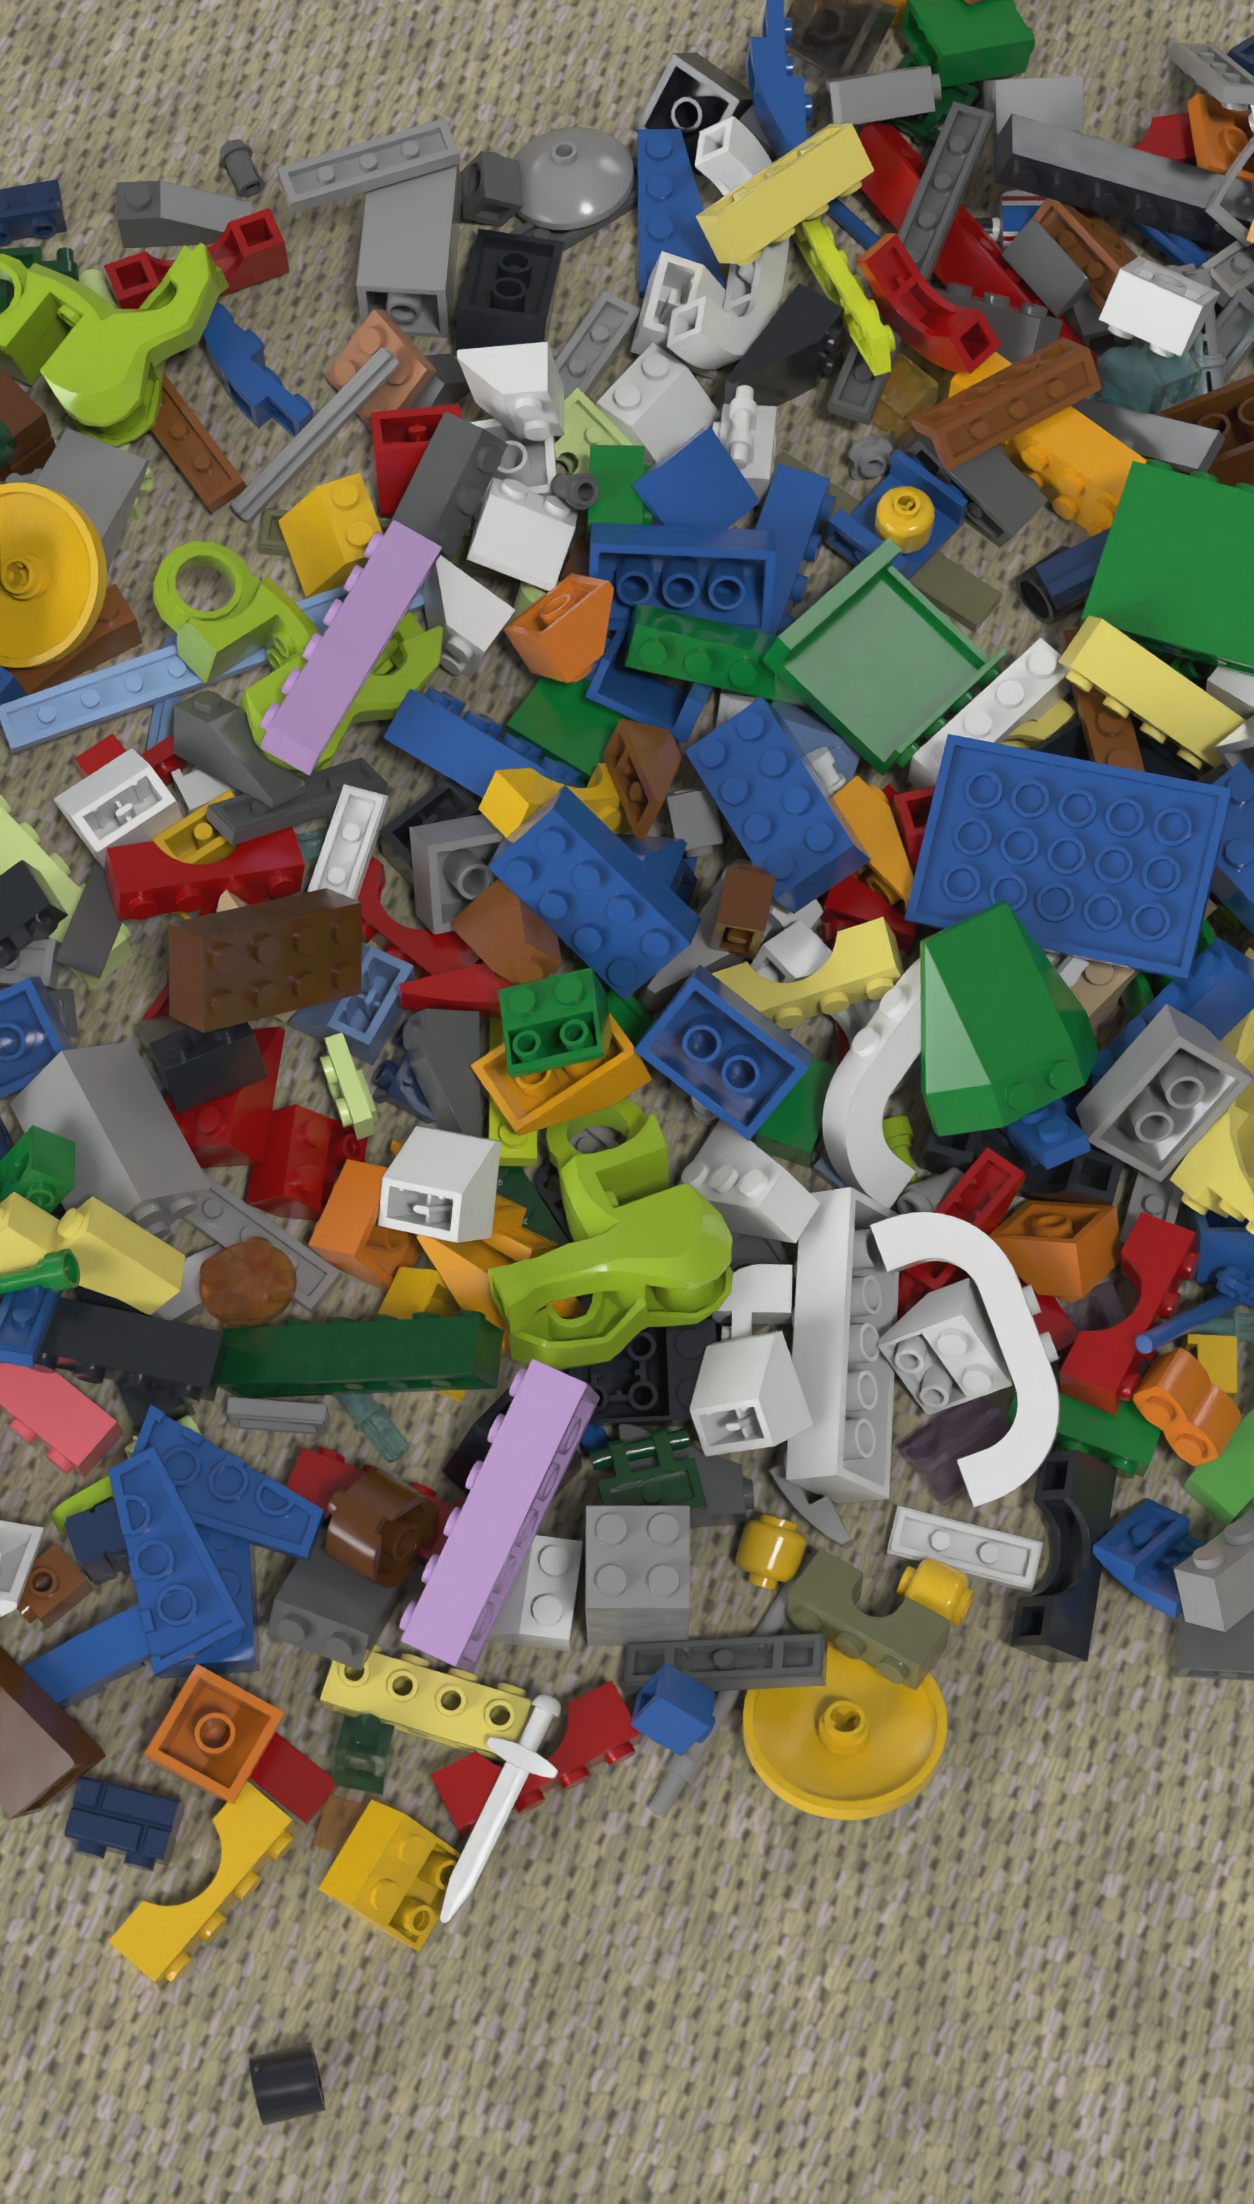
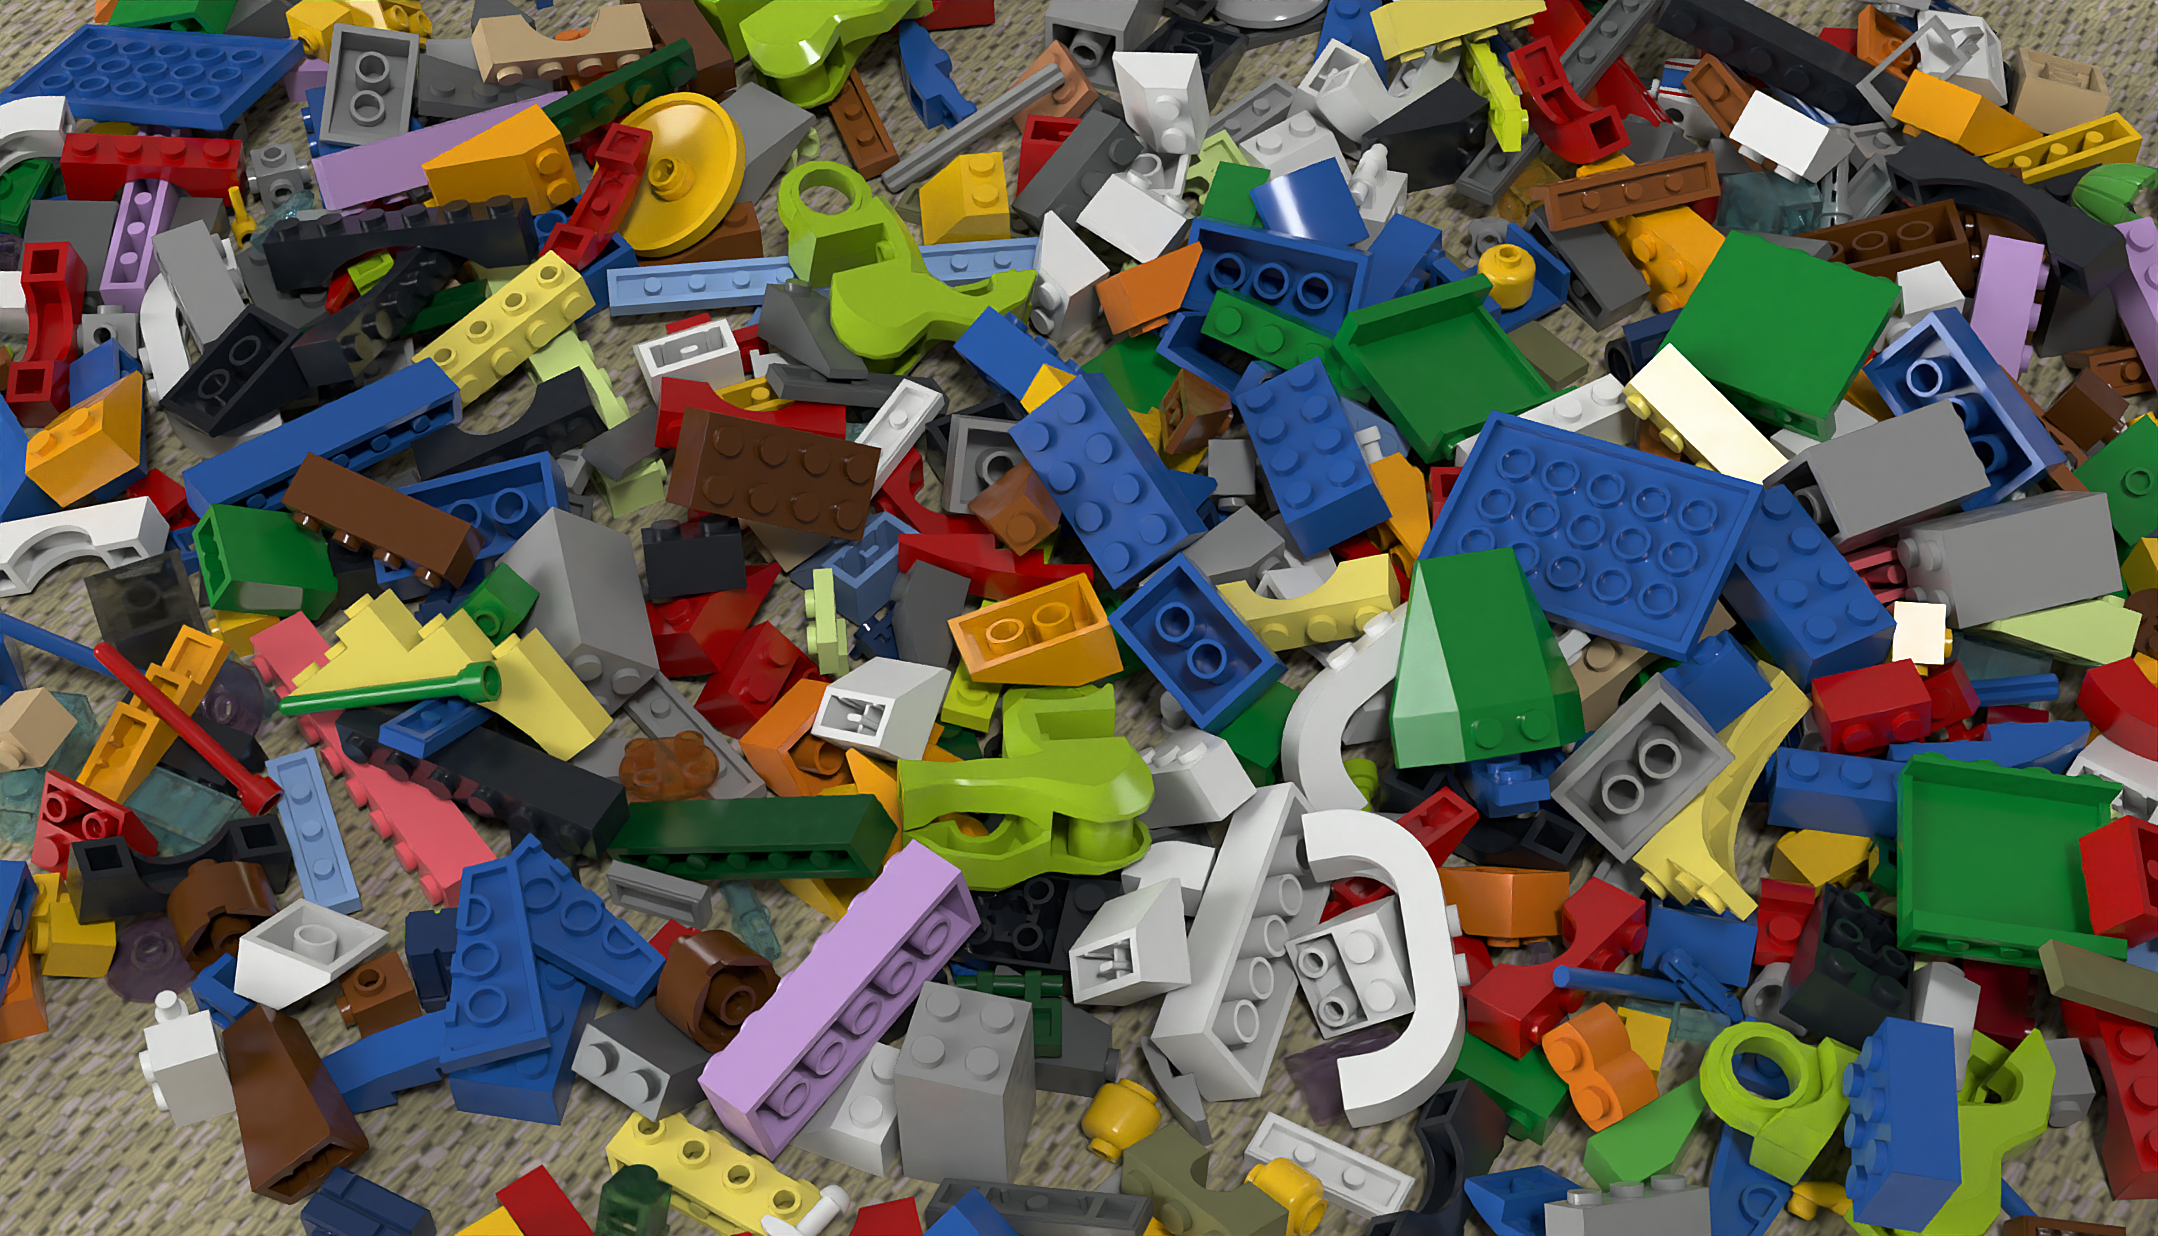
camera: 15 degrees right, 20 degrees down
(214, 1735) = (482, 1154): orange slope -> none
(349, 648) = (939, 258): lavender brick -> none
(554, 1022) = (1036, 577): green slope -> none
(577, 489) = (1197, 188): dark grey pin -> none
(742, 910) = (1247, 521): reddish brown brick -> none
(1046, 268) = (1693, 107): dark grey slope -> none

